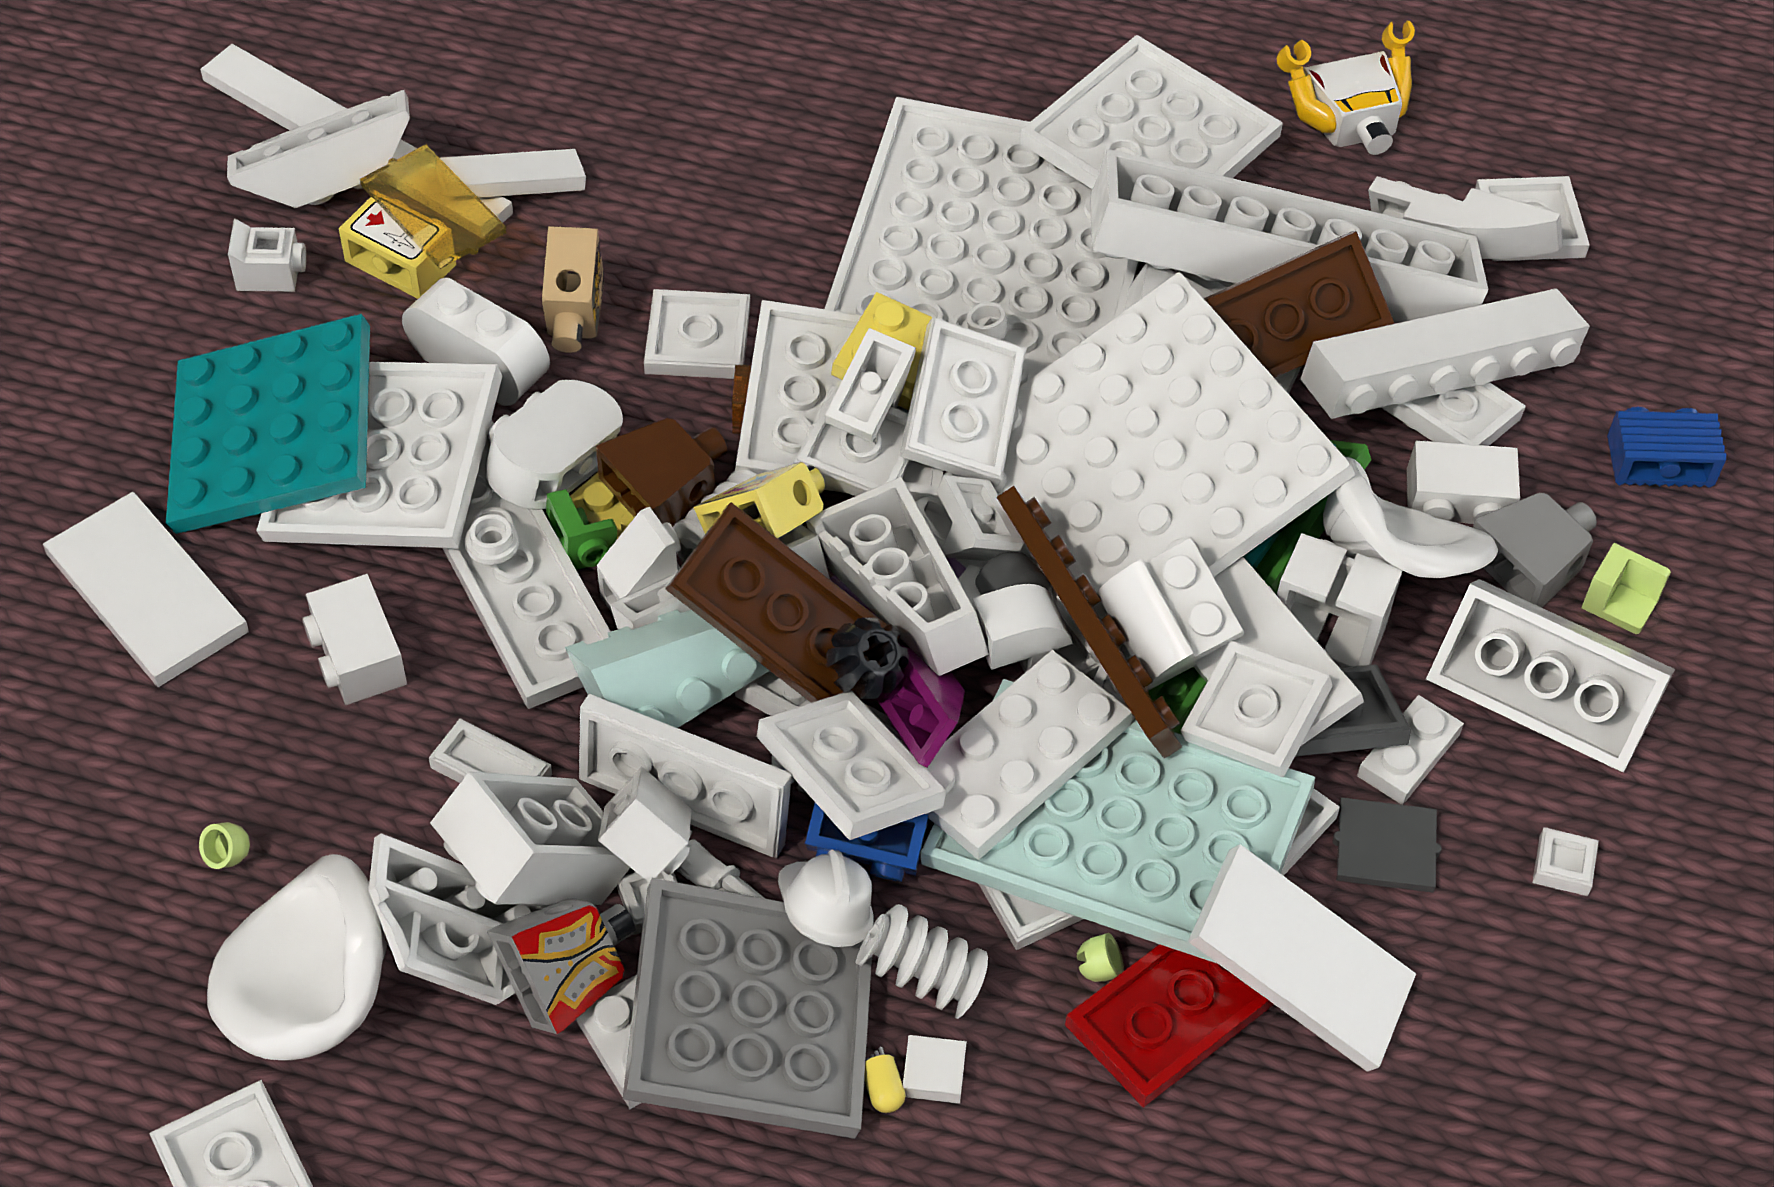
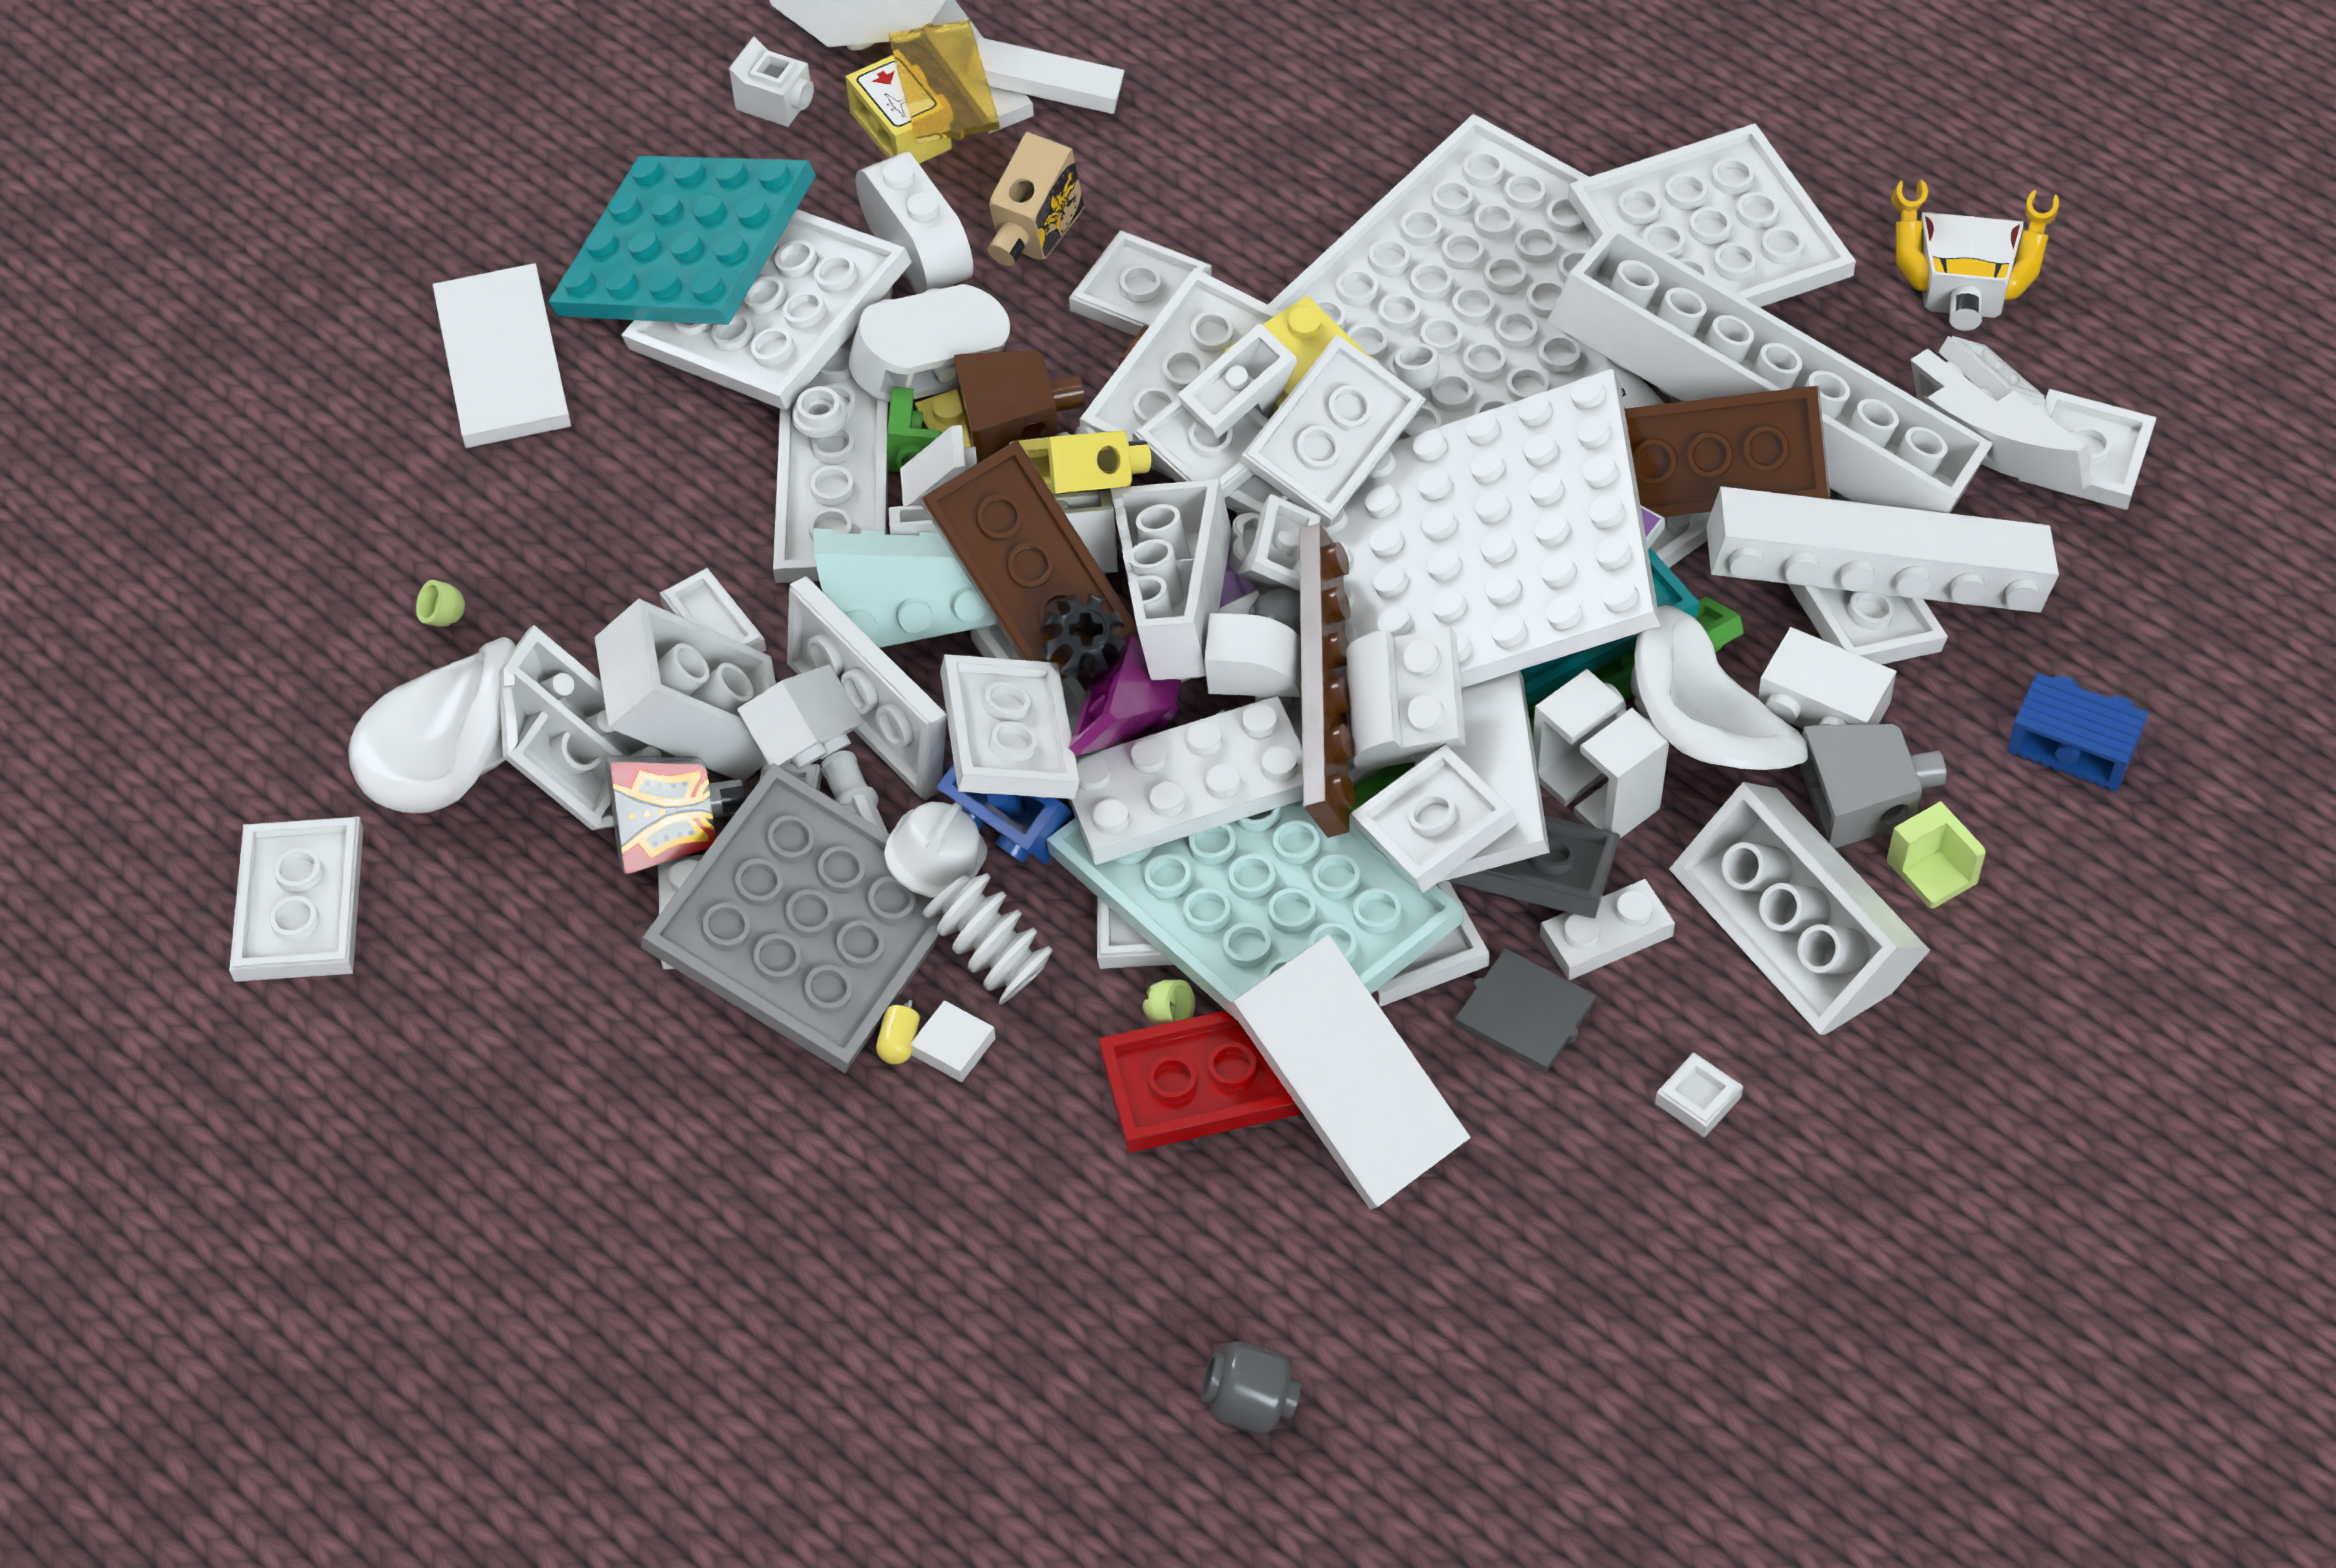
camera: 30 degrees right, 0 degrees up
(355, 639) = (651, 463): white brick -> none
(1426, 179) = (1988, 369): none -> white plate

